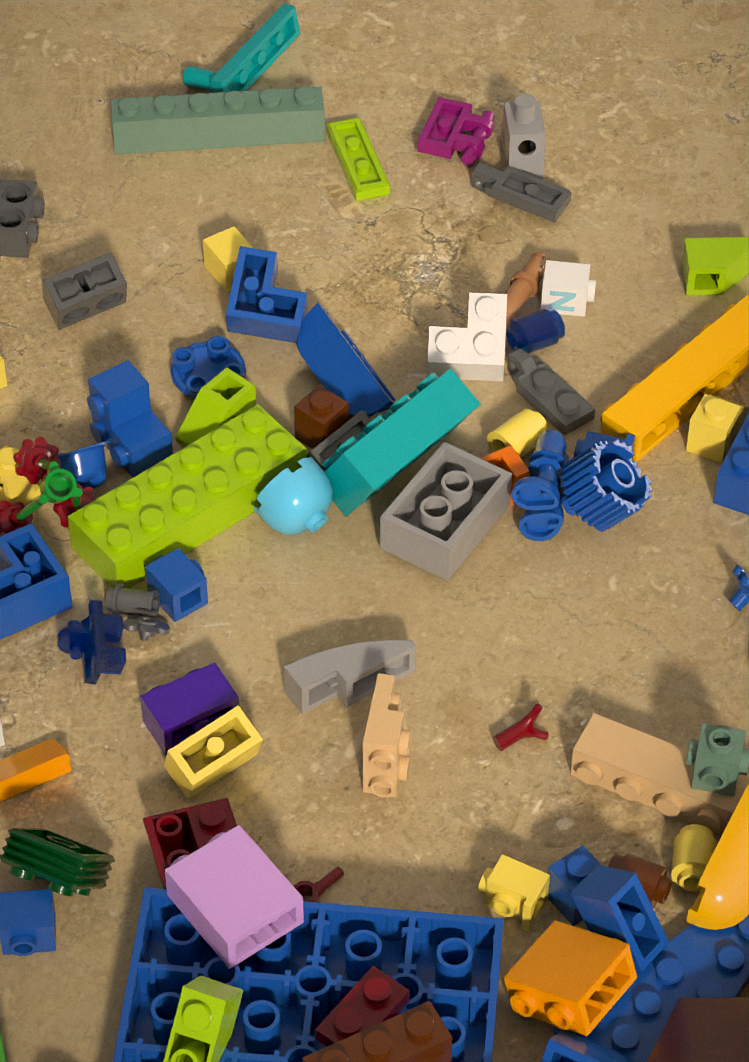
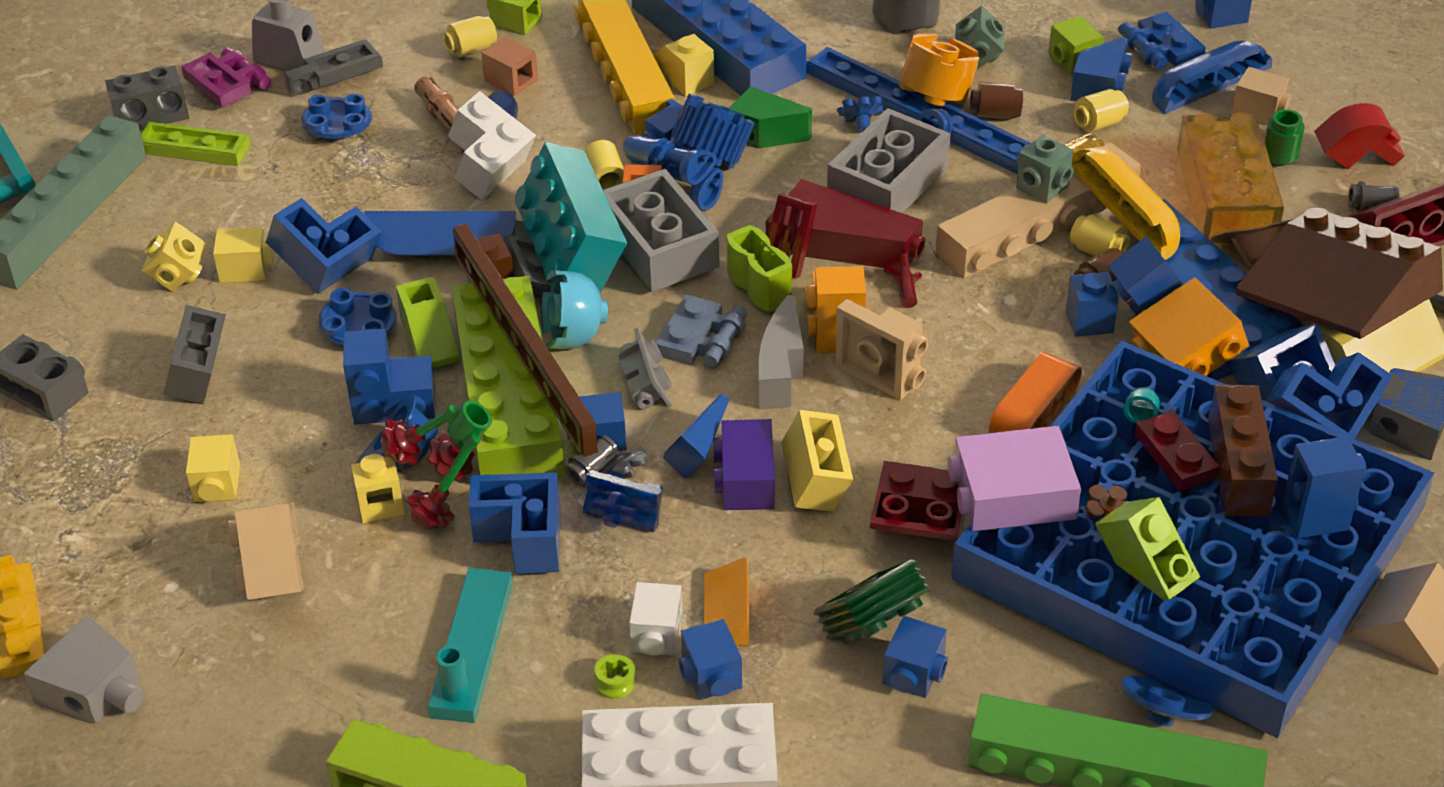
camera: 60 degrees left, 5 degrees down
(187, 656) = (697, 439): none -> blue slope
(196, 477) = (526, 341): none -> reddish brown tile
(202, 215) = (174, 257): none -> light yellow brick
(257, 986) = (1104, 502): none -> reddish brown plant
(269, 590) = (645, 377): none -> light grey hinge
(348, 596) = (690, 329): none -> sand blue plate
(379, 100) = (147, 99): none -> dark grey brick
(404, 962) = (1141, 405): none -> teal hinge
(414, 886) = (1037, 395): none -> orange beam
(433, 683) = (828, 290): none -> light orange brick
(442, 605) = (758, 267): none -> lime brick
(455, 227) = (336, 116): none -> blue dish
(498, 606) = (802, 240): none -> dark red tile
(515, 890) = (1076, 338): light yellow brick -> none
(549, 393) = (571, 134): dark grey hinge -> none
(555, 645) = (855, 229): none -> dark red slope
(567, 288) = (467, 78): white brick -> none
(612, 304) = (509, 65): none -> nougat brick
(635, 256) = (470, 36): none -> light yellow brick
(665, 641) = (891, 161): none -> light grey brick
(677, 521) = (775, 118): none -> green slope

